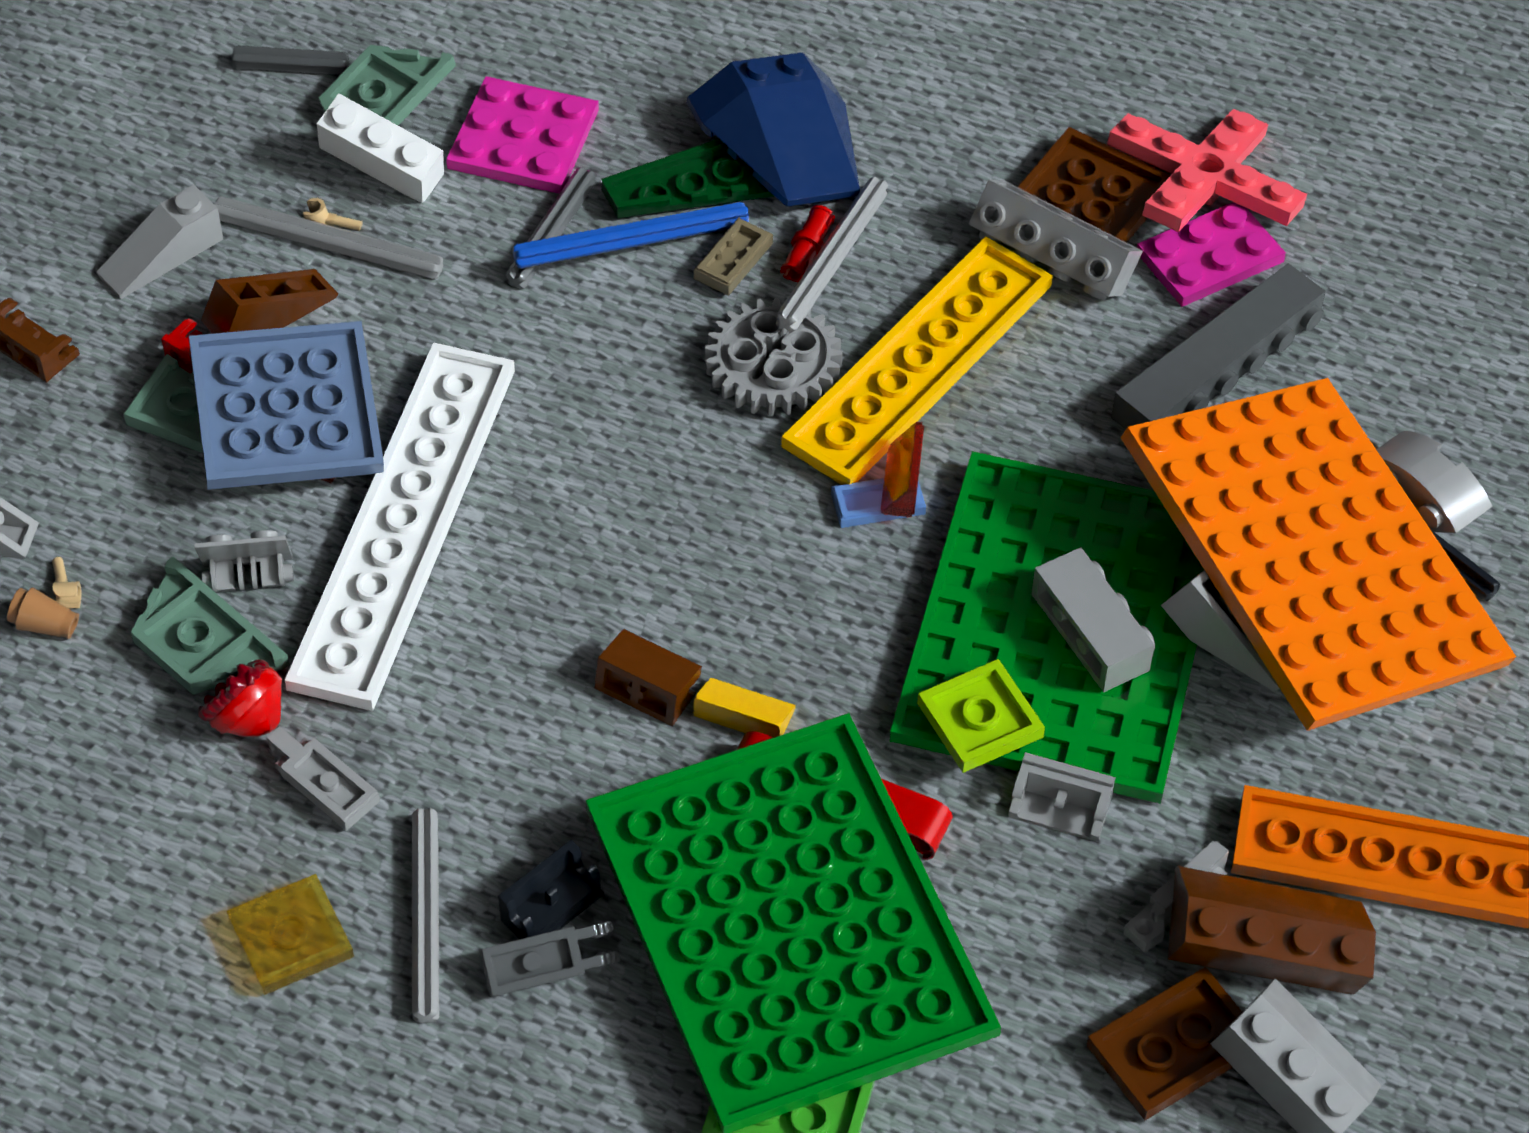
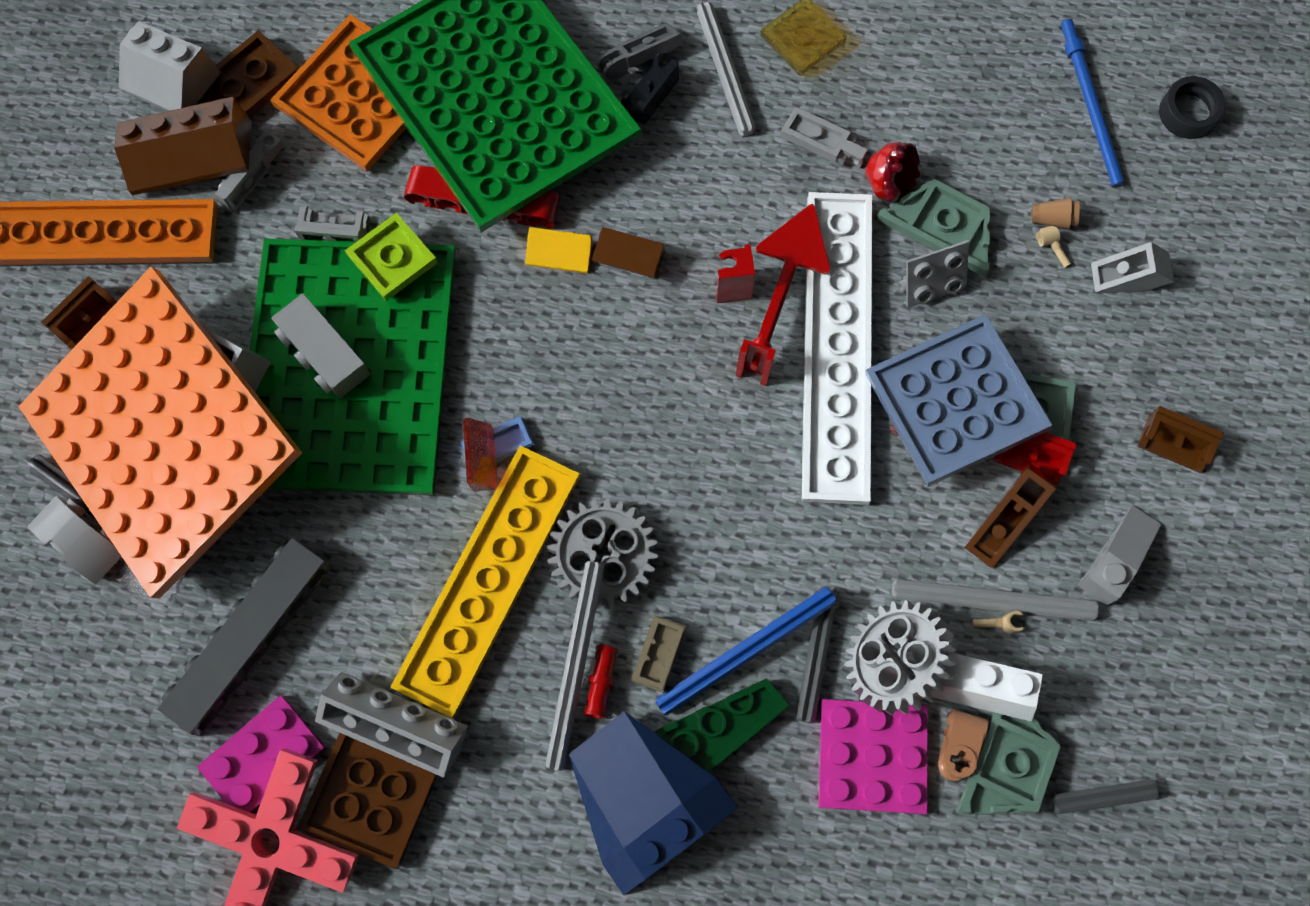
camera: 170 degrees right, 20 degrees up
(417, 630) = (797, 245): none -> red piece
(427, 111) = (964, 740): none -> nougat piece
(463, 180) = (924, 636): none -> light grey gear
(513, 595) = (738, 281): none -> red hinge
(1040, 984) = (340, 100): none -> orange plate
(1429, 751) = (79, 312): none -> reddish brown hinge

